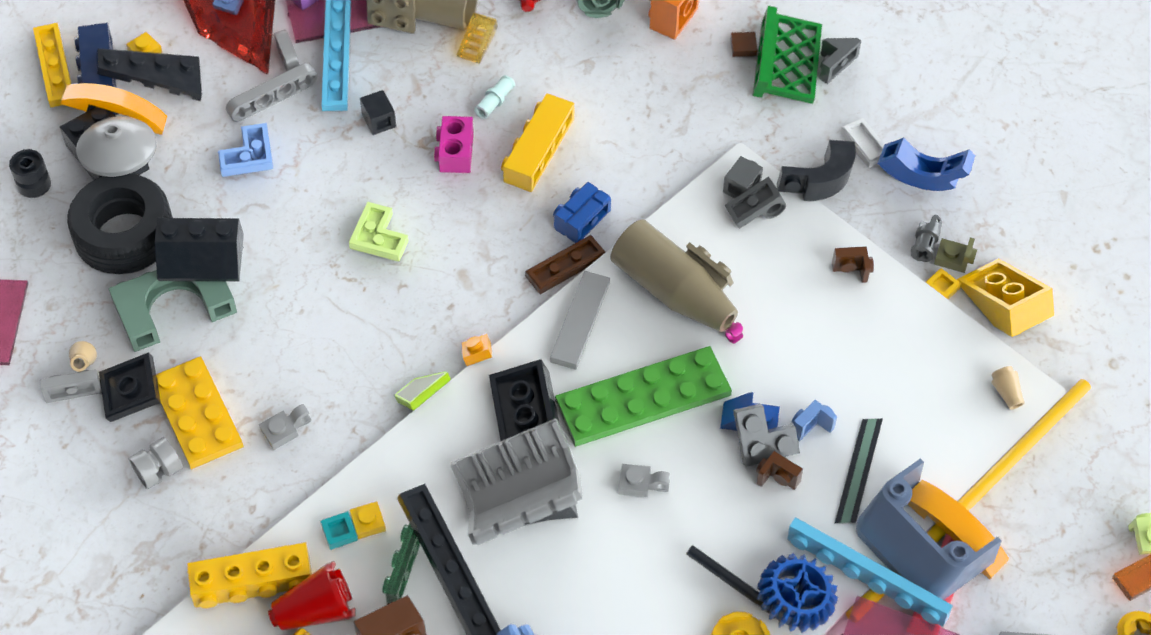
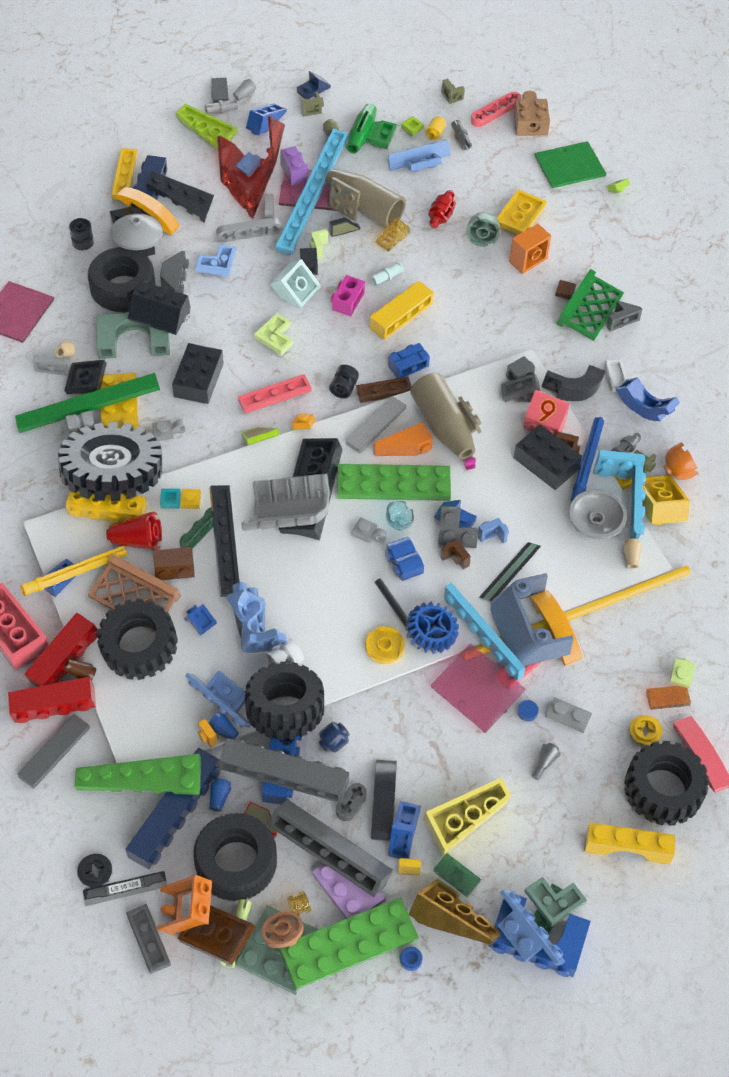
camera: 20 degrees right, 0 degrees up
(144, 43) = (184, 177): yellow plate -> none
(149, 427) = (87, 402): none -> green tile
(191, 190) = (174, 272): none -> dark grey slope
(229, 506) = (110, 461): none -> wheel
(294, 328) = (198, 373): none -> black piece
(374, 150) = (295, 284): none -> light aqua slope
(377, 78) = (319, 238): none -> yellowish green bracket
(402, 47) = (342, 226): none -> tile
(416, 321) = (274, 393): none -> coral plate
(507, 271) = (344, 381): none -> black wheel
(637, 332) = (405, 443): none -> orange slope
(676, 443) = (398, 515): none -> clear light blue hair
(711, 503) = (404, 558): none -> blue brick
(809, 230) = (546, 411): none -> coral slope
(835, 289) = (547, 457): none -> black brick
(895, 316) = (588, 457): none -> blue axle
(943, 337) = (600, 507): none -> light grey dish
(957, 264) = (625, 466): none -> medium azure bracket
(1008, 238) = (680, 463): none -> orange cylinder

